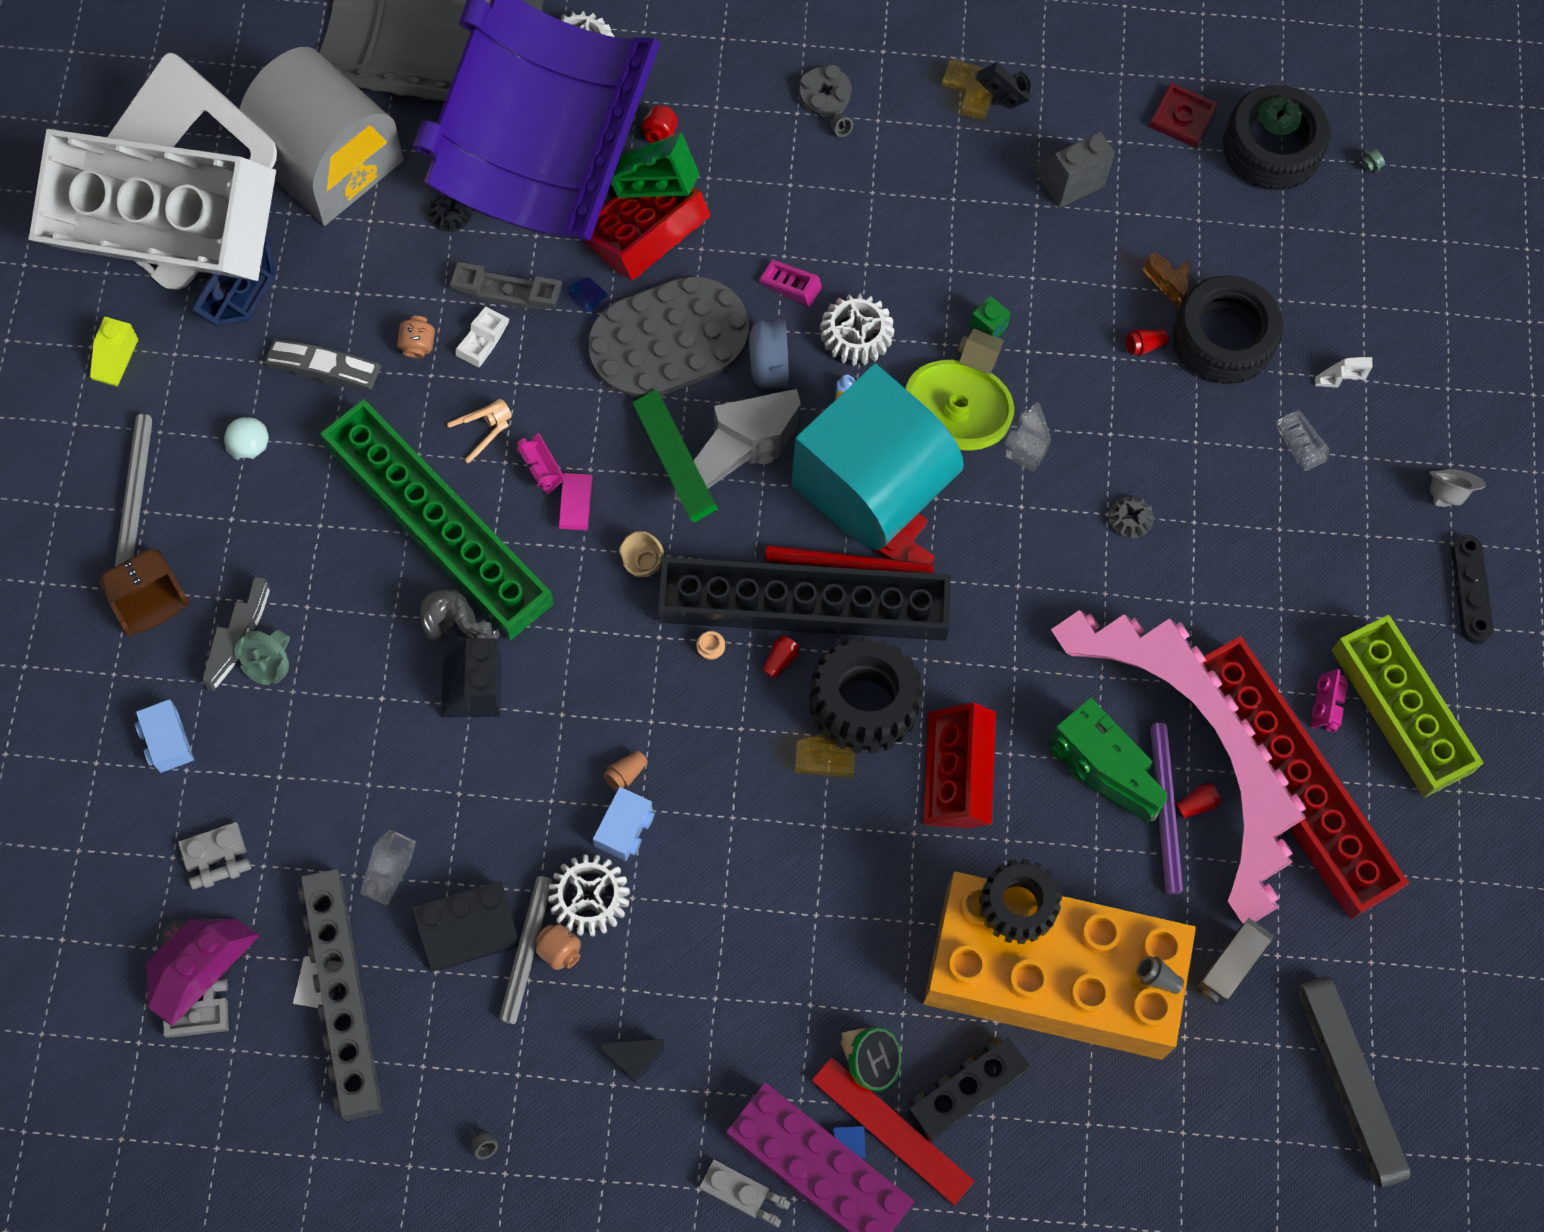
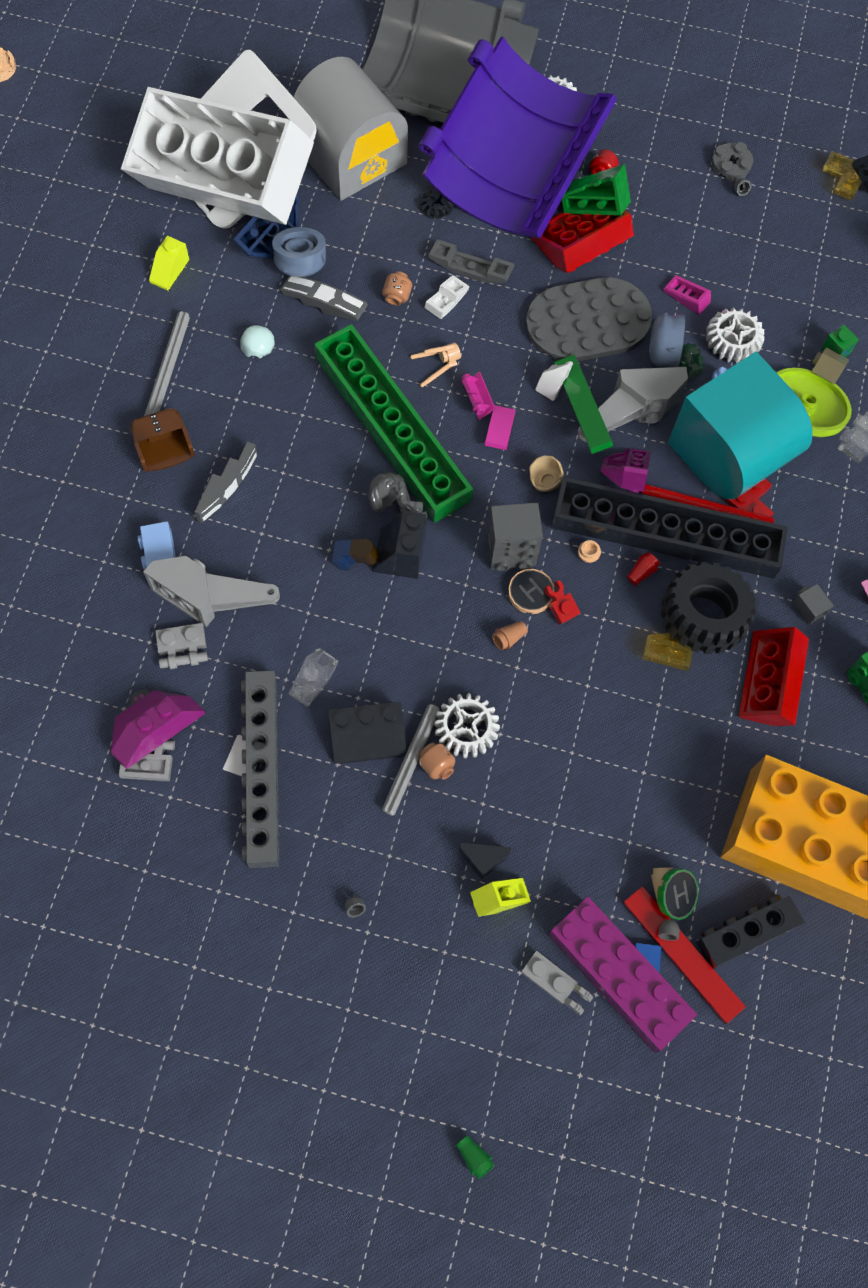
camera: 10 degrees right, 0 degrees up
(228, 785) = (200, 594): none -> light grey slope
(263, 656) = (243, 501): sand green tile -> none
(281, 309) = (299, 251): none -> sand blue piece
(413, 698) = (354, 552): none -> leg
(587, 293) = (530, 278): clear blue slope -> none
(611, 646) = (514, 536): none -> dark grey piece
(623, 824) = (502, 675): light blue brick -> none
(632, 428) = (552, 380): none -> white slope
(645, 709) = (527, 591): none -> black tile
(660, 1101) = (500, 896): none -> neon yellow slope
(687, 722) = (563, 605): none -> red plate
(743, 531) = (627, 469): none -> magenta wedge
(797, 379) = (688, 352): none -> clear green gear
(870, 1106) = (669, 930): none -> dark grey hinge
(995, 666) = (812, 603): none -> dark grey brick
(1028, 877) = (835, 772): black tyre -> none

